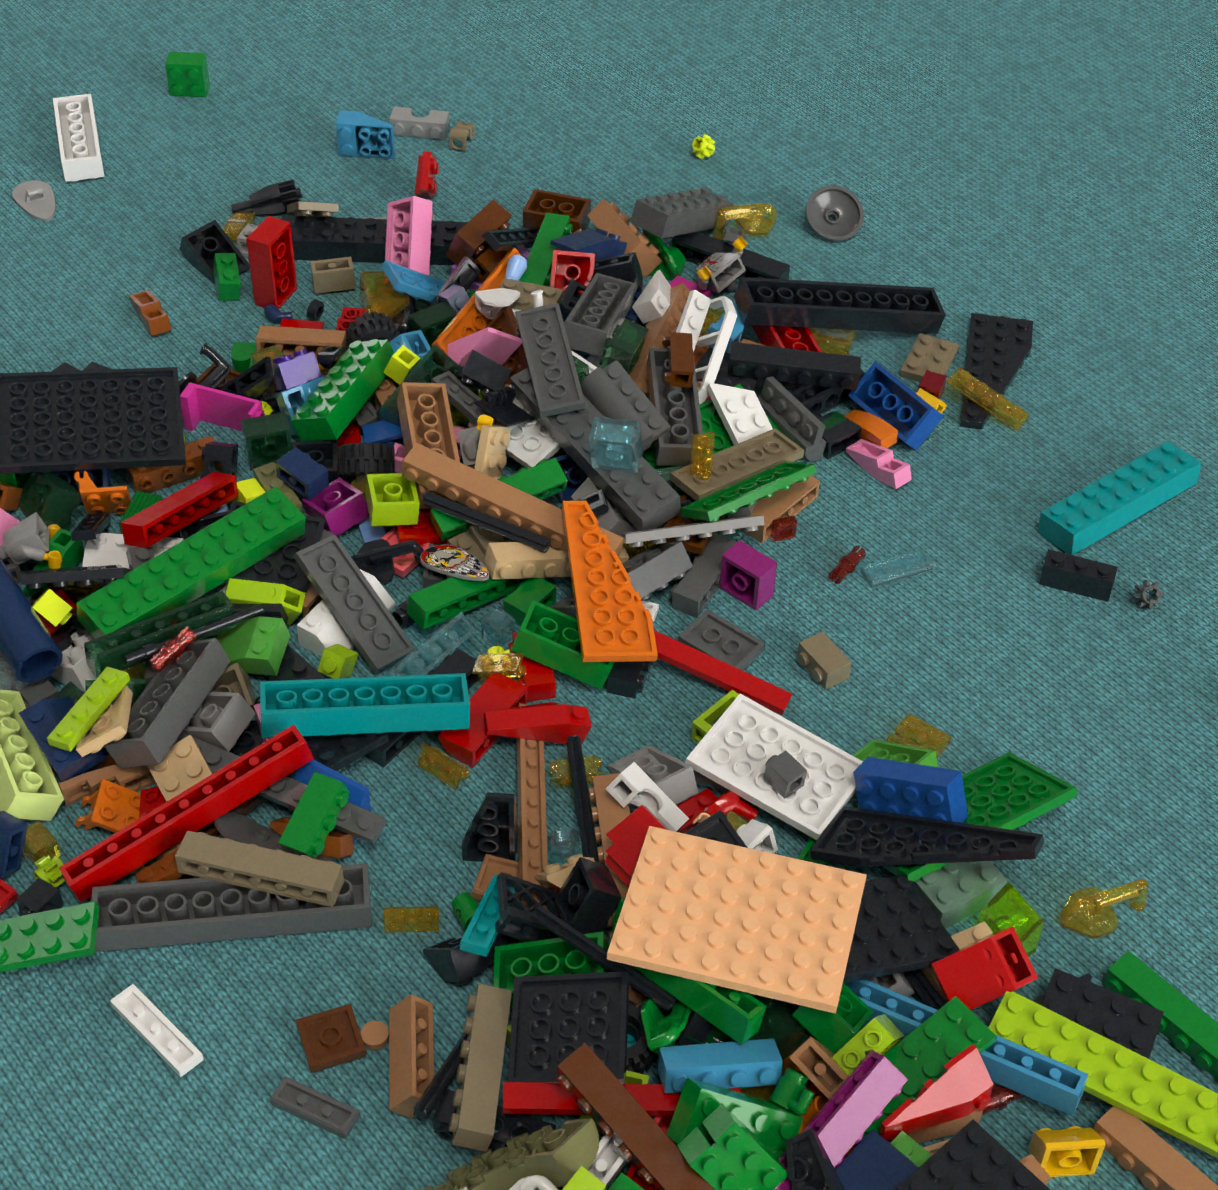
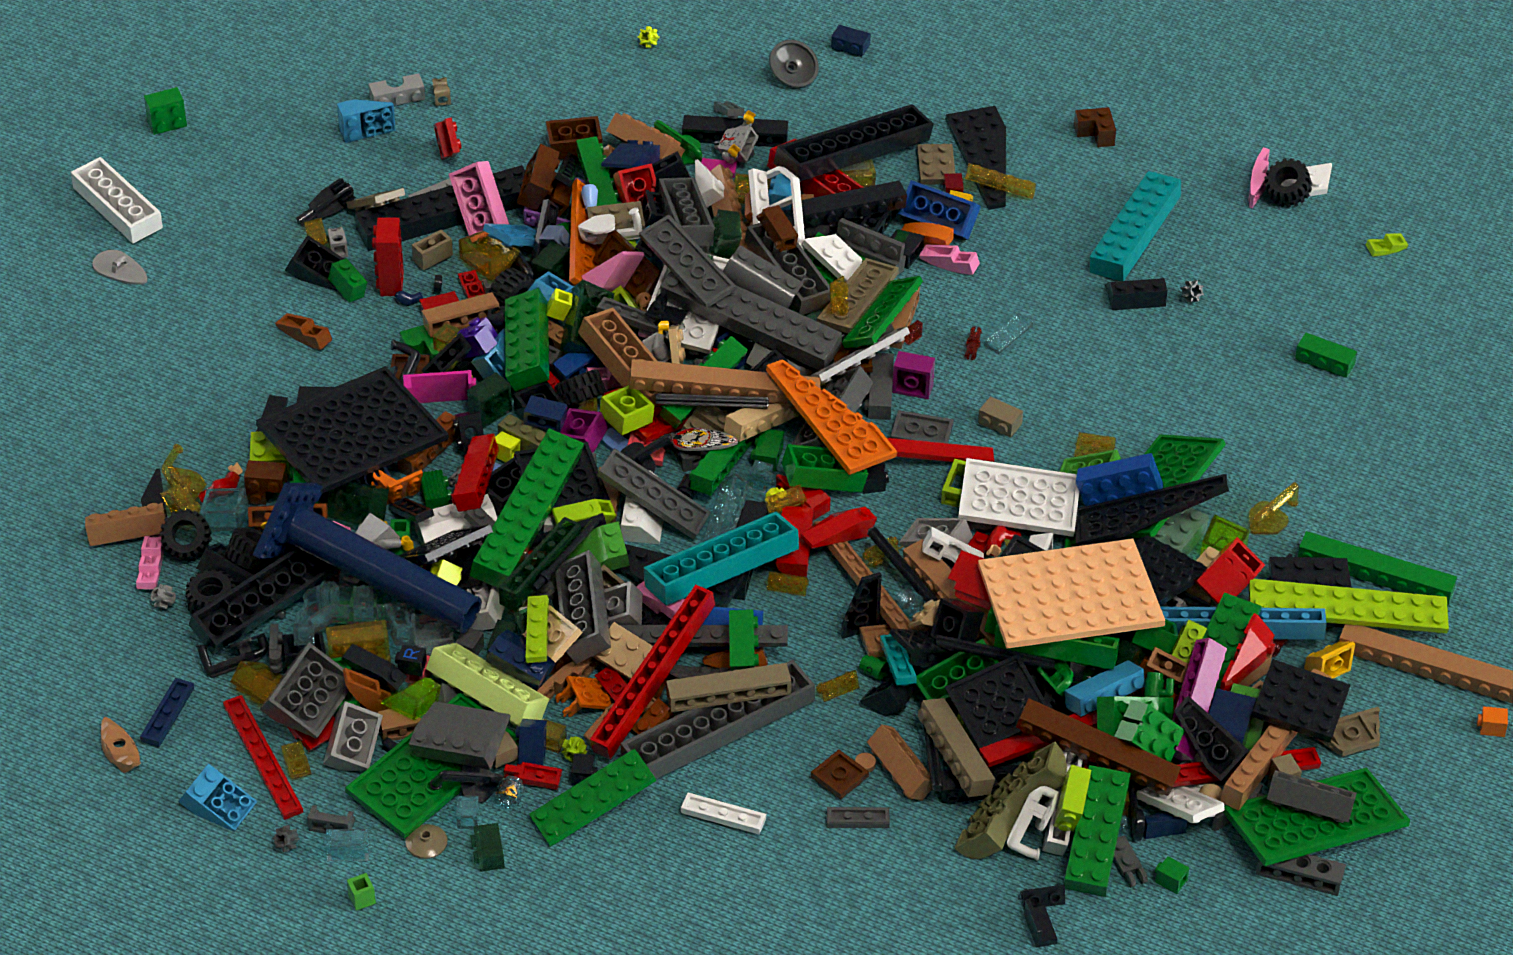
camera: 25 degrees left, 0 degrees up
(172, 649) = (562, 568): clear red pin -> none
(337, 661) = (666, 540): lime brick -> none
(482, 372) = (631, 289): black slope -> none
(615, 444) = (781, 309): clear light blue brick -> none
(679, 212) = (681, 103): dark grey brick -> none
(748, 218) = (728, 91): clear yellow piece -> none
(784, 774) = (1031, 499): dark grey brick -> none
(913, 210) = (850, 40): none -> dark blue brick
(1138, 373) = (1096, 123): none -> reddish brown brick

